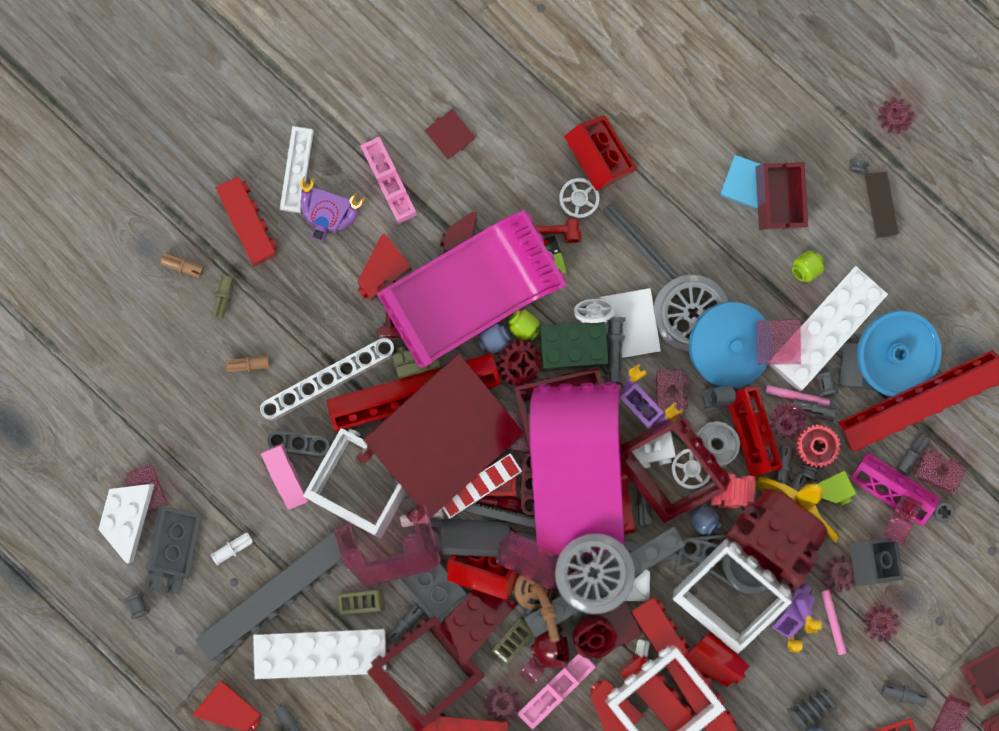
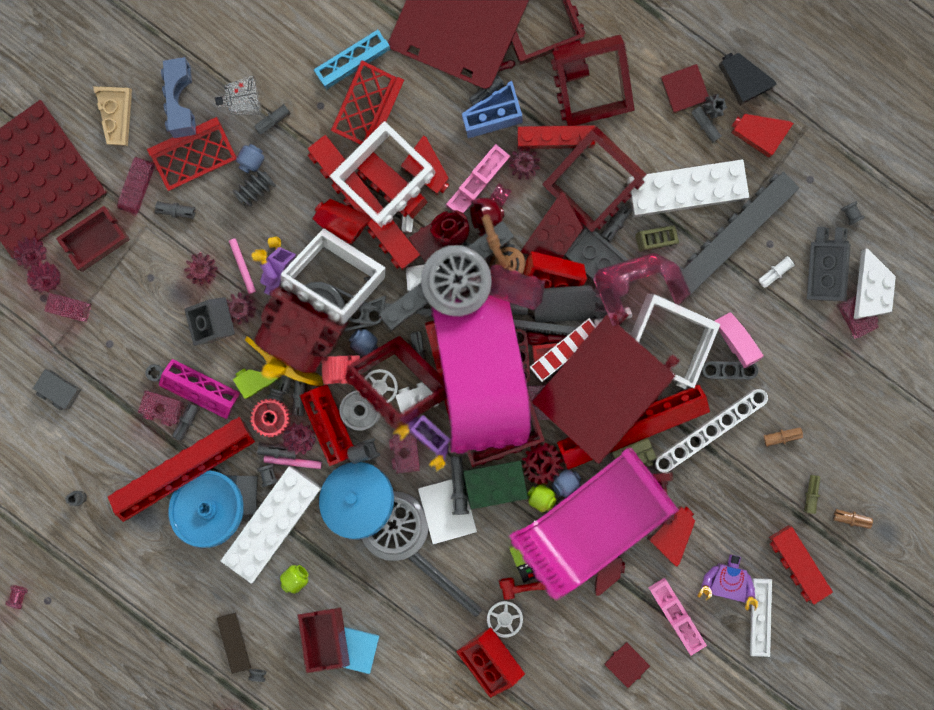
camera: 175 degrees right, 5 degrees up
(503, 656) = (530, 205): olive slope -> none
(594, 311) = (480, 517): white wheel -> none
(778, 342) = (313, 506): clear pink tile -> none
(902, 519) = (189, 360): clear pink brick -> none

